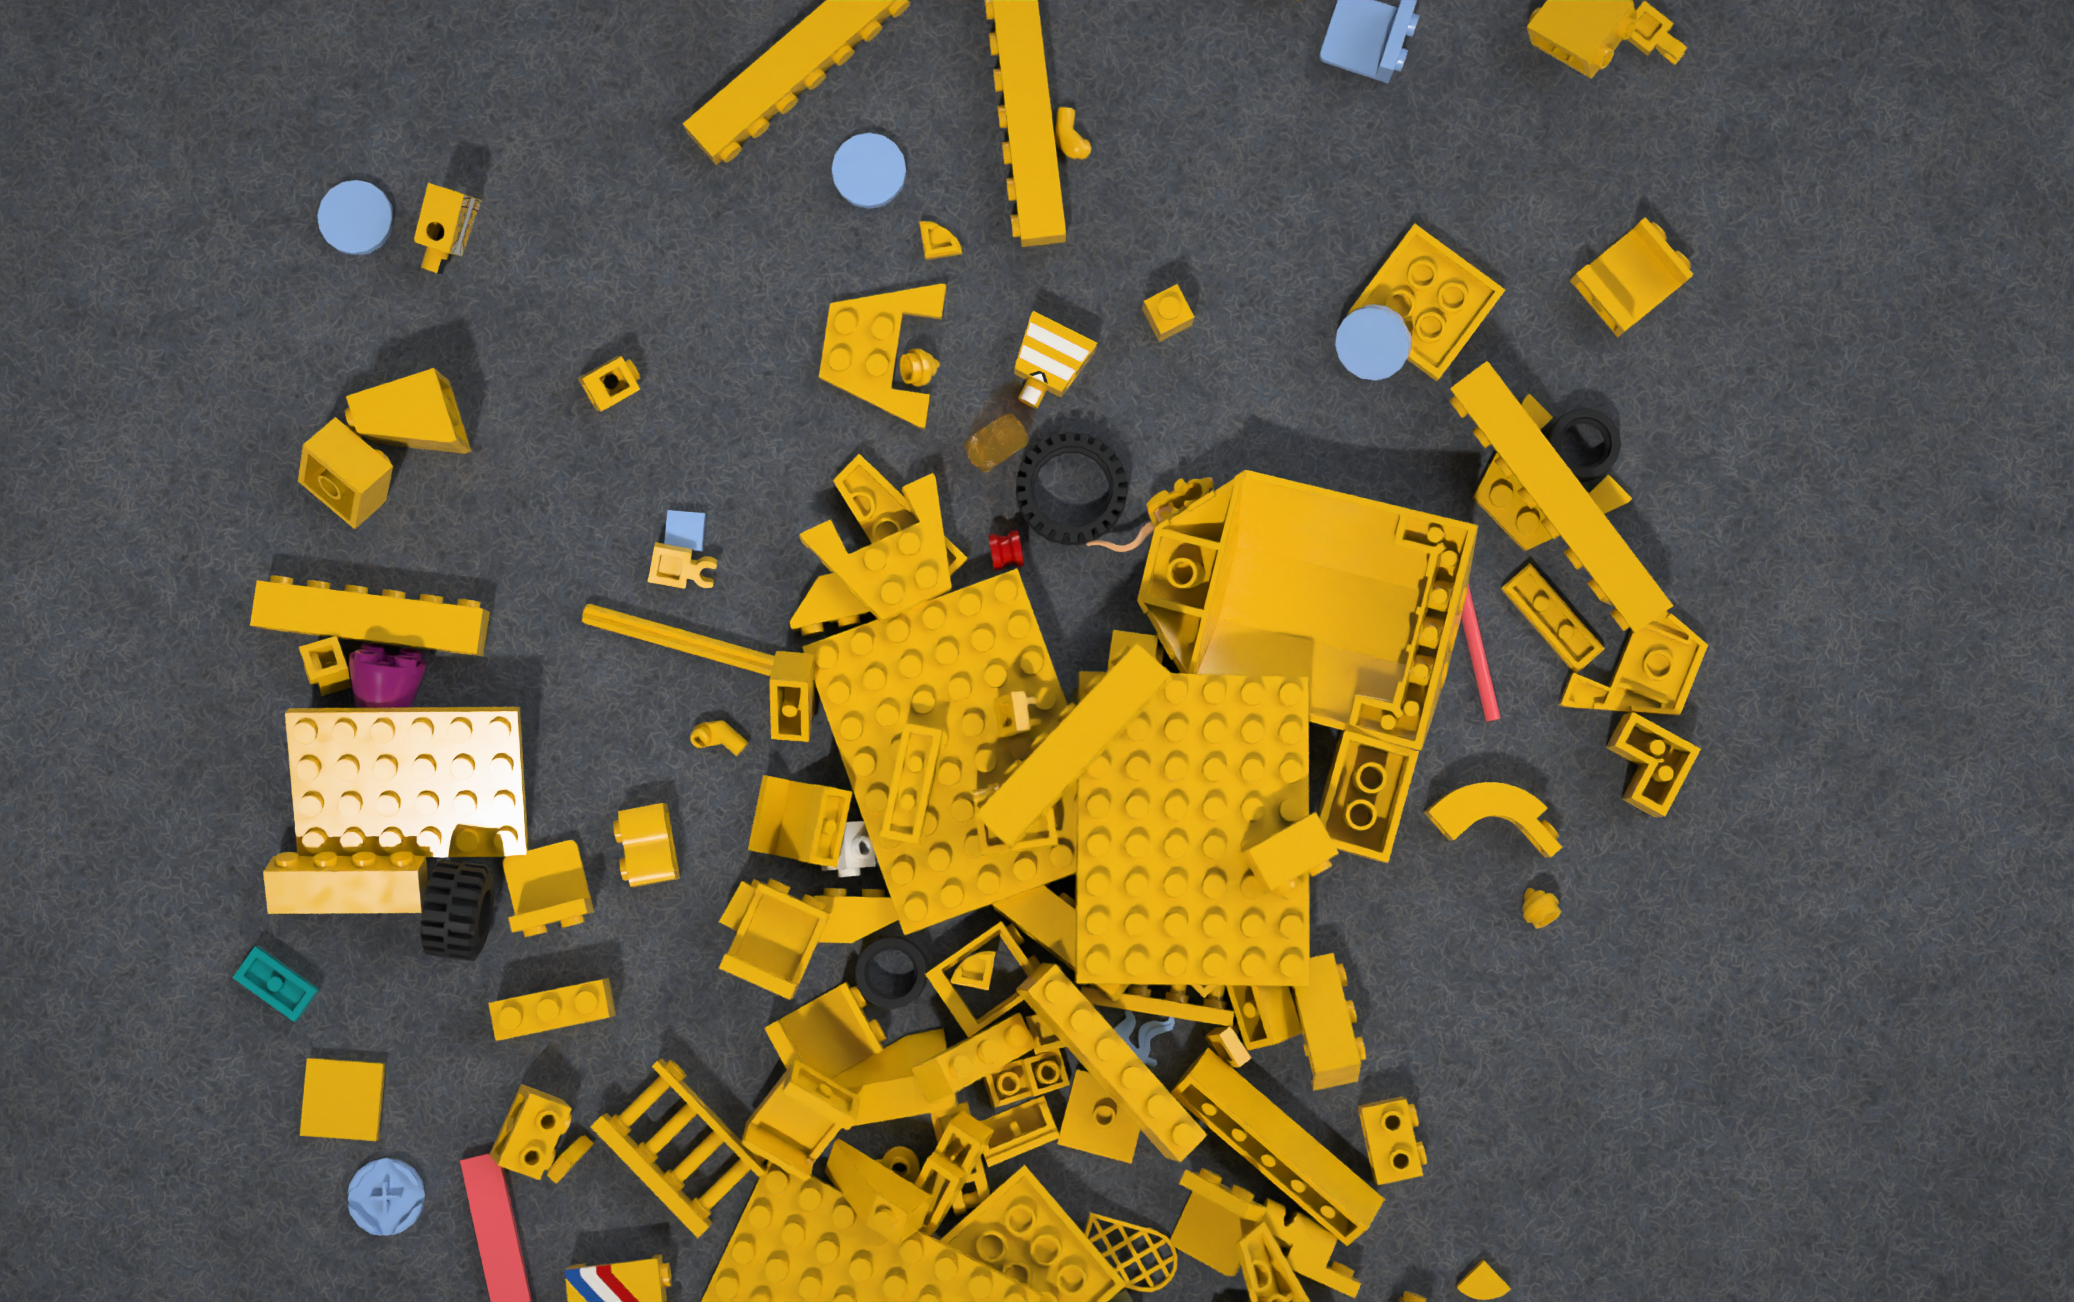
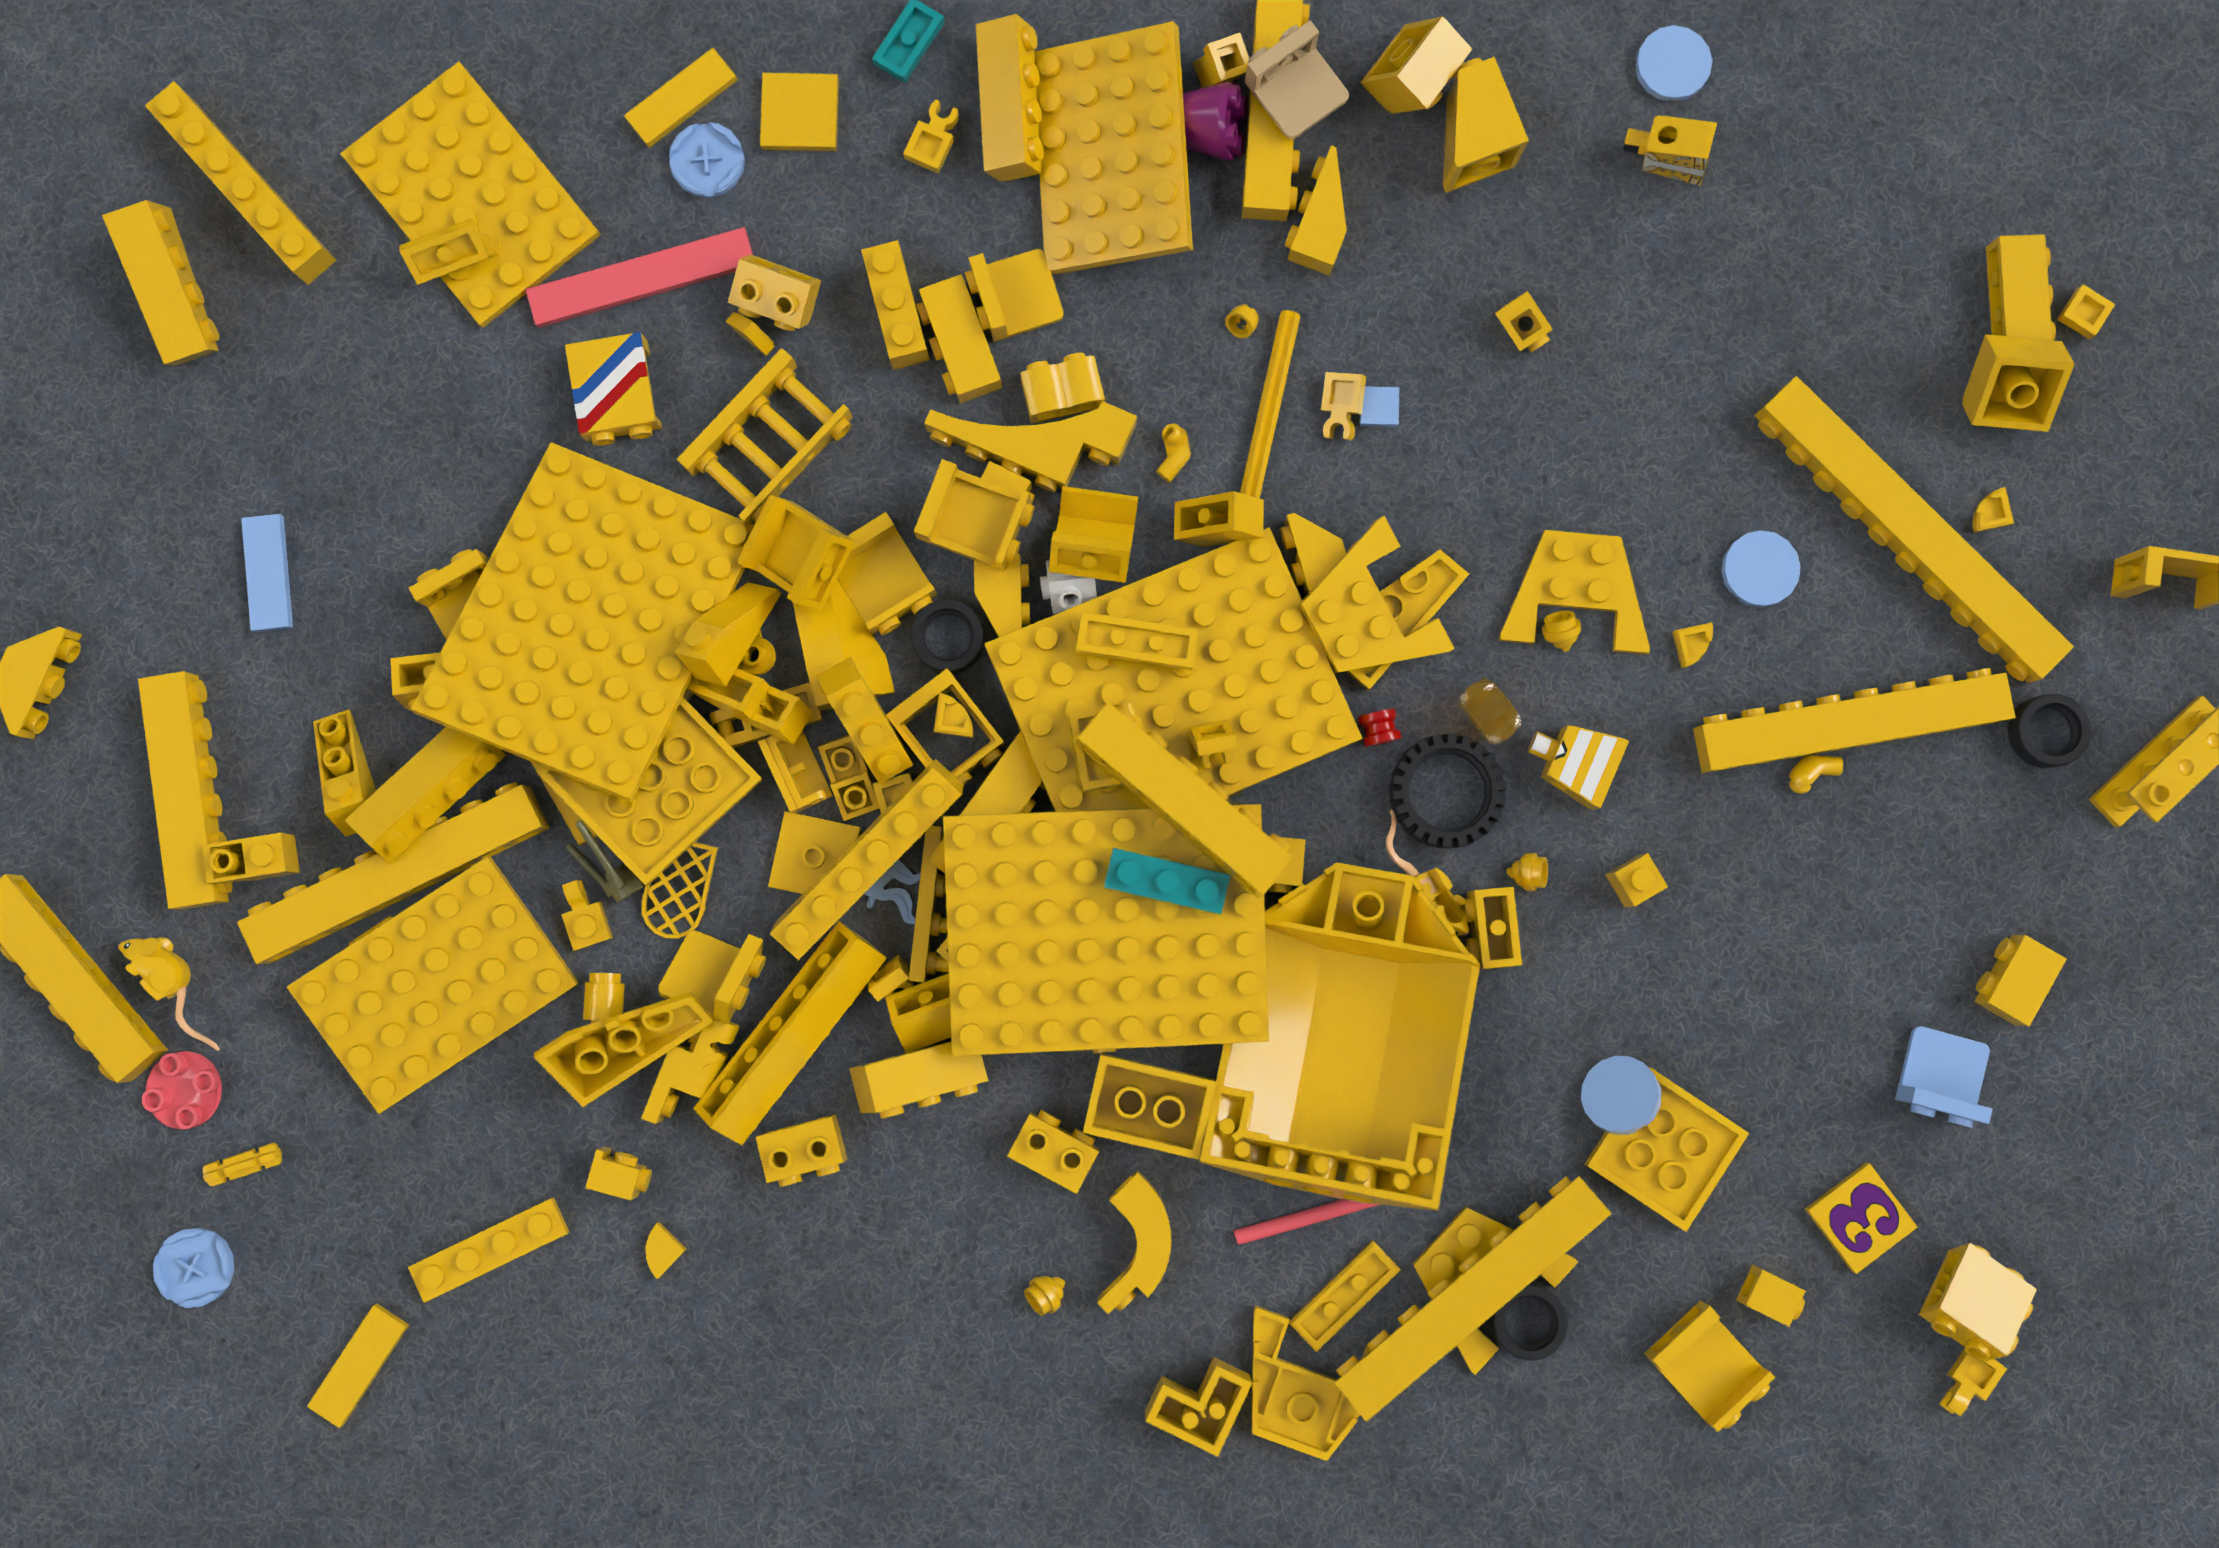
camera: 85 degrees right, 0 degrees up
(319, 1221) = (680, 97): none -> yellow tile
(355, 594) = (1295, 81): none -> tan bracket
(385, 966) = (930, 141): none -> yellow plate
(457, 910) = (987, 203): black tyre -> none
(497, 574) = (1323, 223): none -> yellow slope
(585, 654) = (1236, 315): none -> yellow hinge
(591, 947) = (958, 339): none -> yellow brick
(710, 869) = (1041, 450): none -> yellow arch
(1150, 767) = (1166, 880): none -> teal plate
(1154, 414) = (1529, 871): none -> yellow plate
(1207, 453) = (1493, 927): none -> yellow brick
(1291, 853) = (1085, 1029): yellow brick -> none
(1403, 891) = (1054, 1151): none -> yellow brick
(1498, 124) = (1861, 1218): none -> yellow tile
(1568, 213) = (1771, 1296): none -> yellow brick

